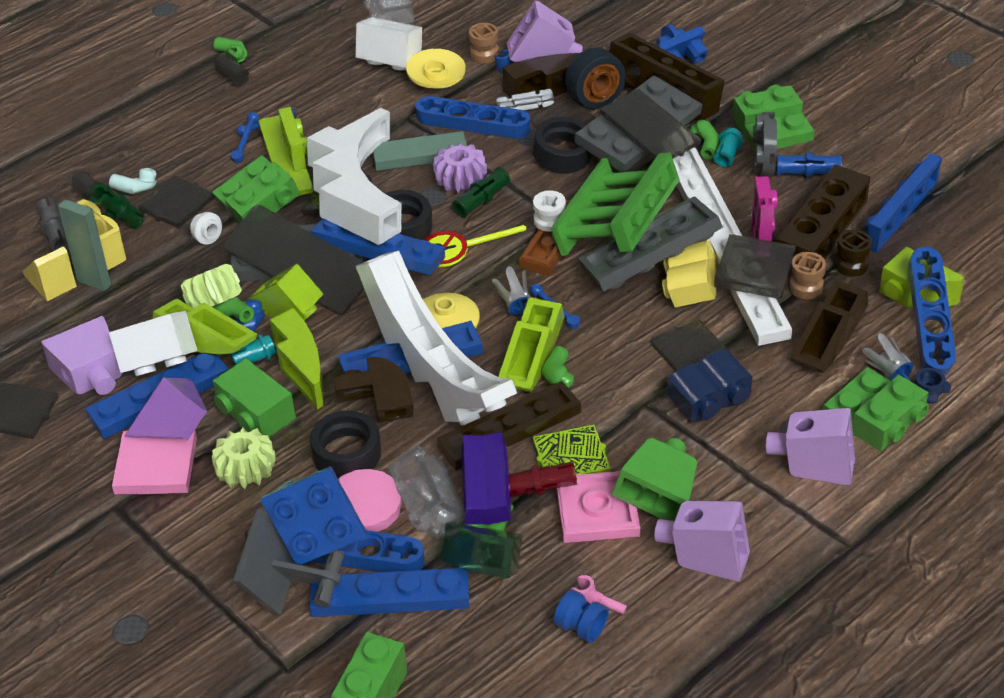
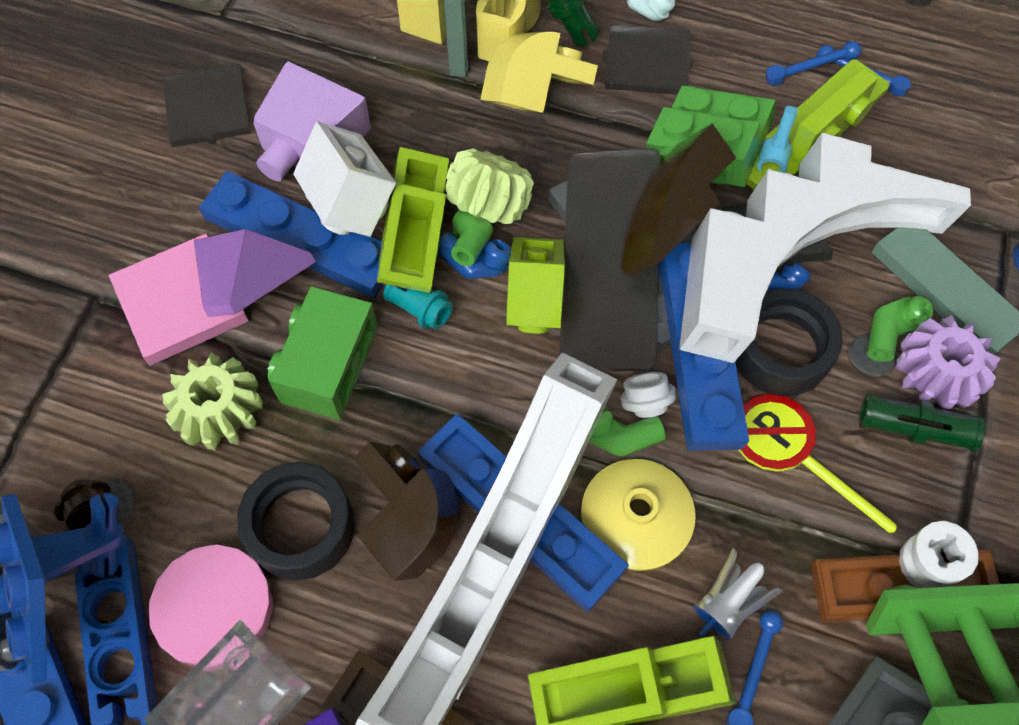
camera: 60 degrees right, 20 degrees up
(148, 241) = (523, 68): none -> light yellow brick
(201, 223) = (615, 108): white plate -> none
(291, 167) = (778, 148): none -> medium azure hand
(295, 207) = (675, 199): none -> dark brown slope
(298, 355) = (433, 366): lime slope -> none
(422, 176) = (893, 321): none -> bright green arm

